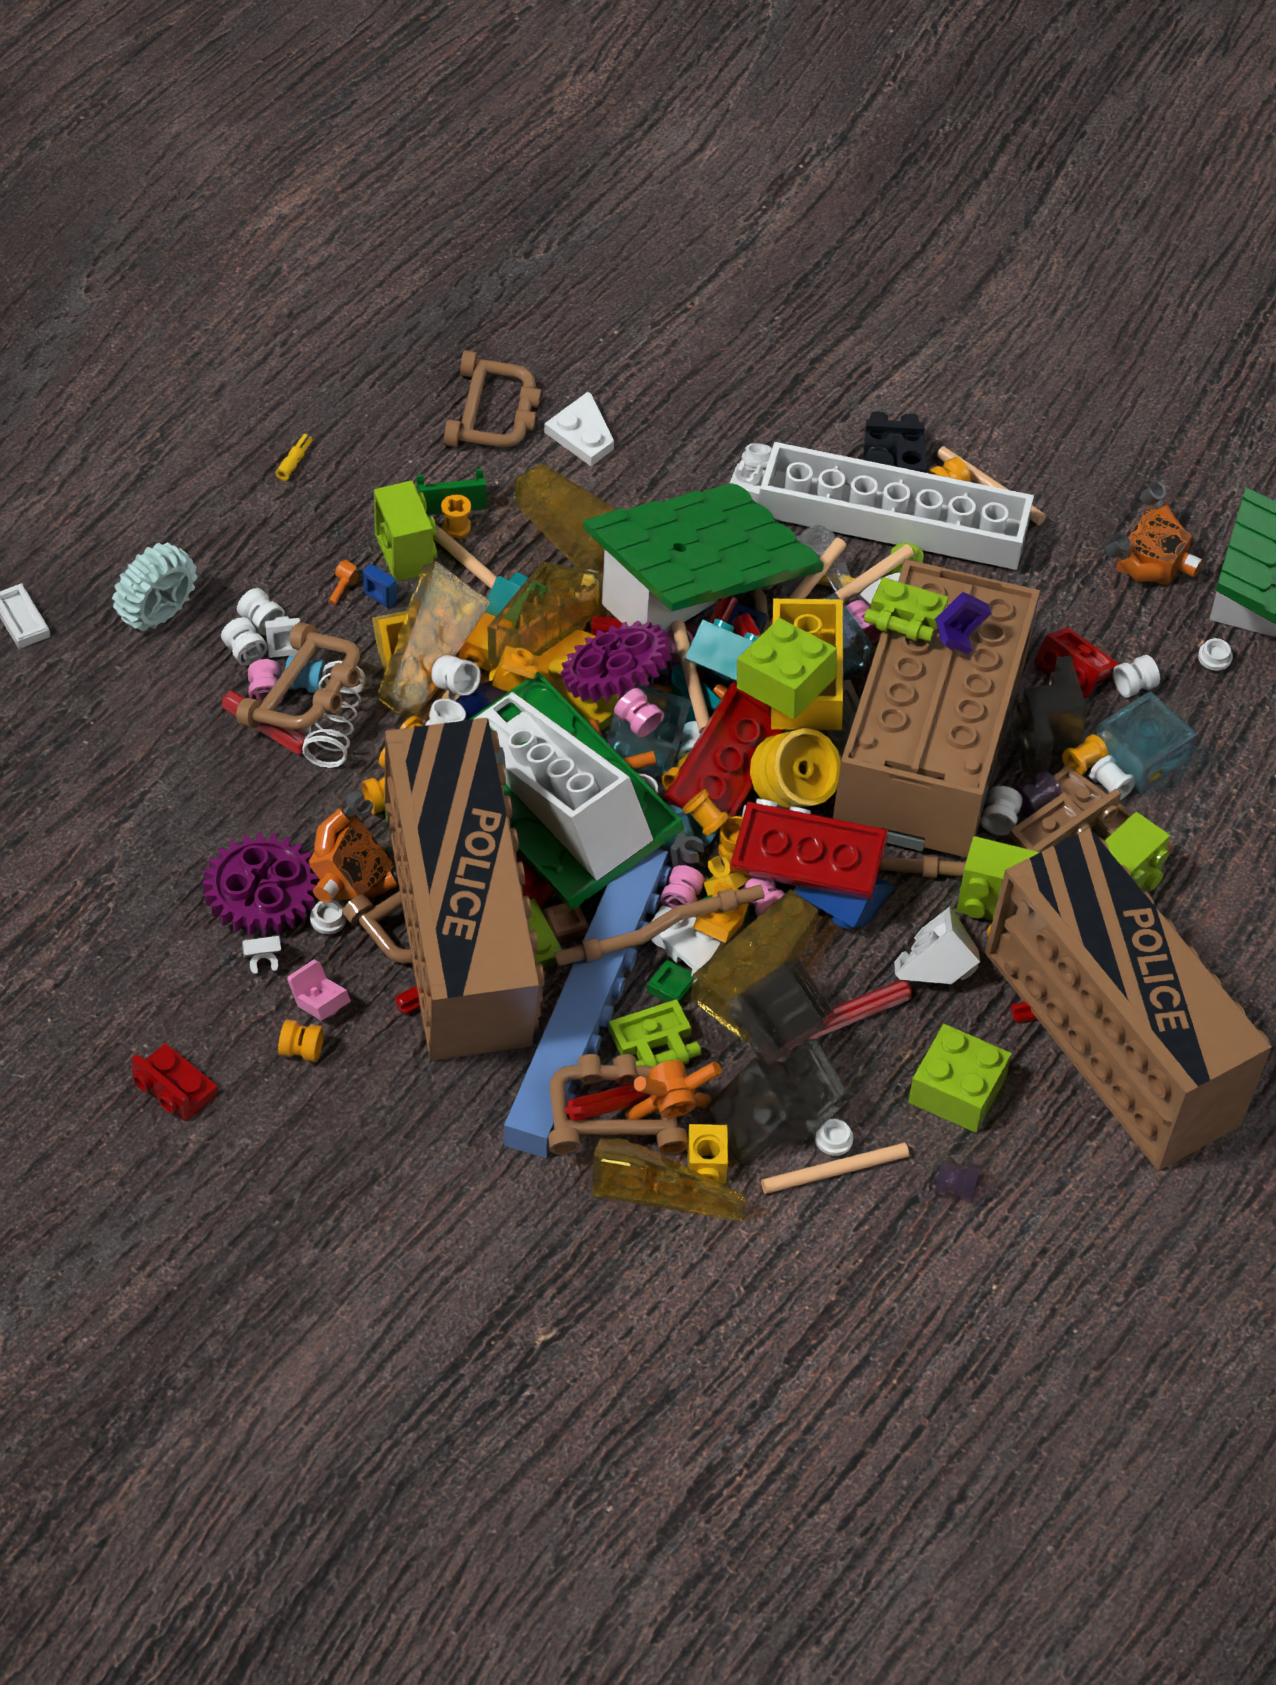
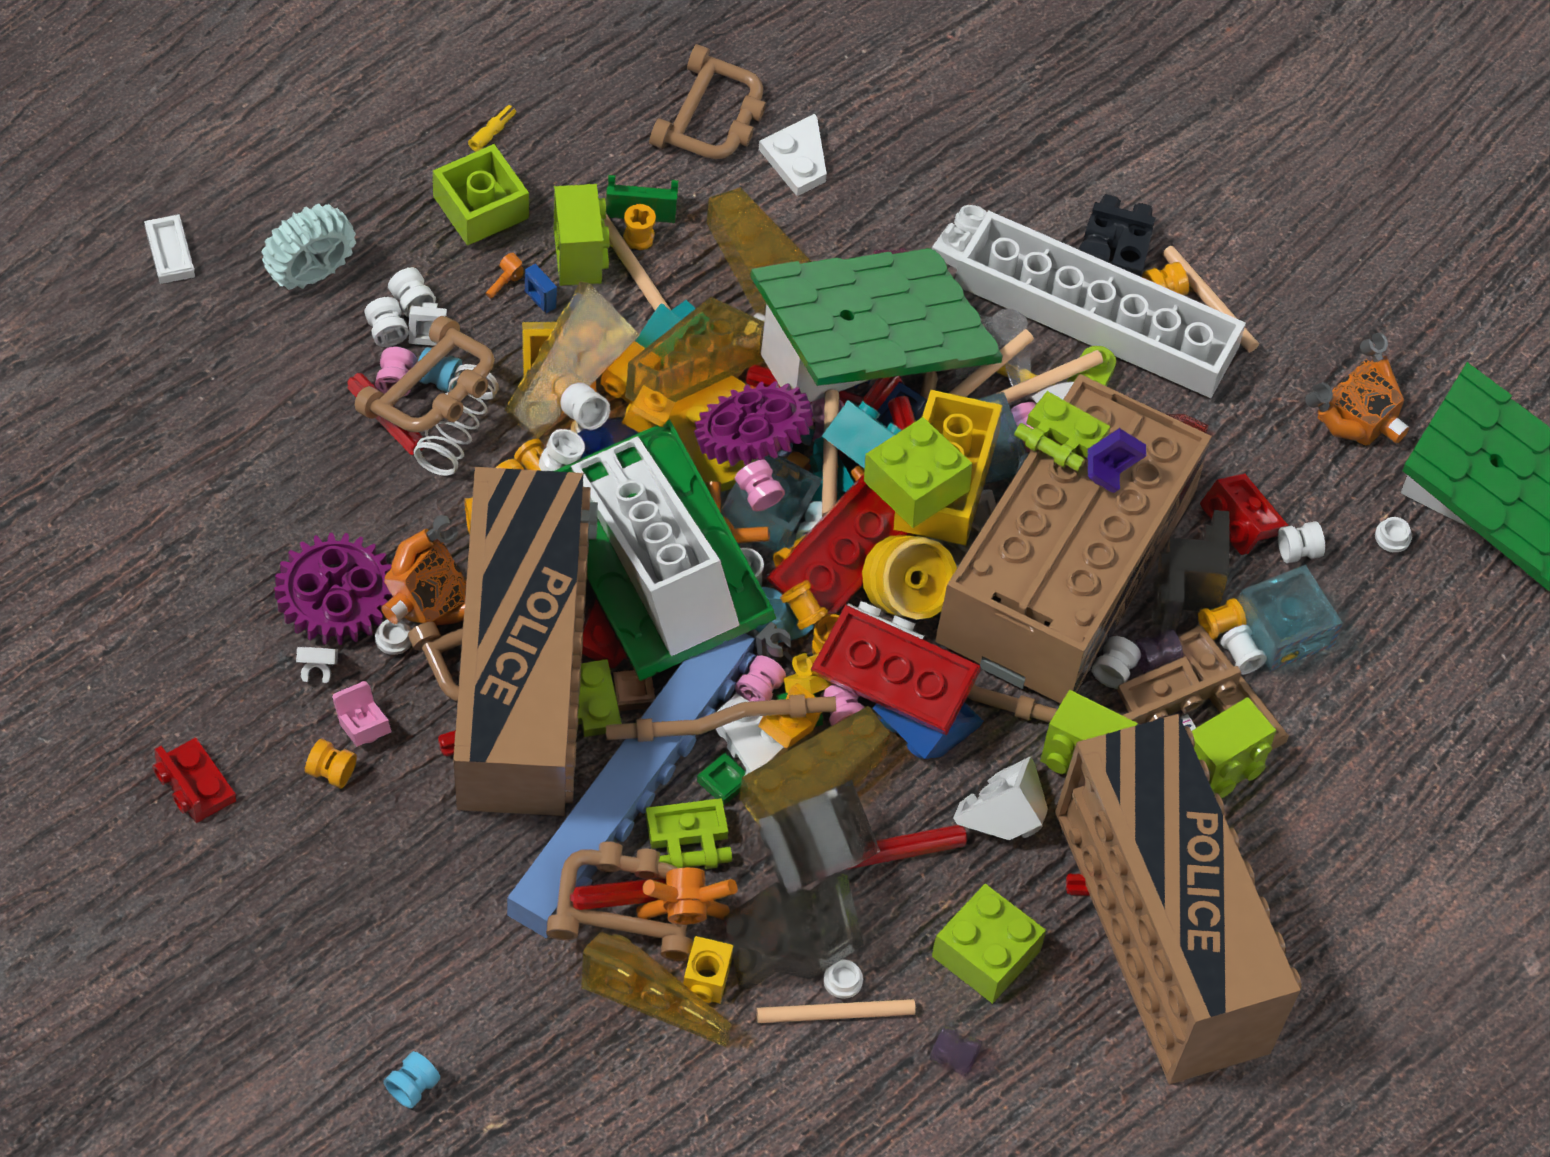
camera: 10 degrees right, 5 degrees up
(302, 513) = (480, 194): none -> lime brick
(458, 1308) = (412, 1079): none -> medium azure wheel

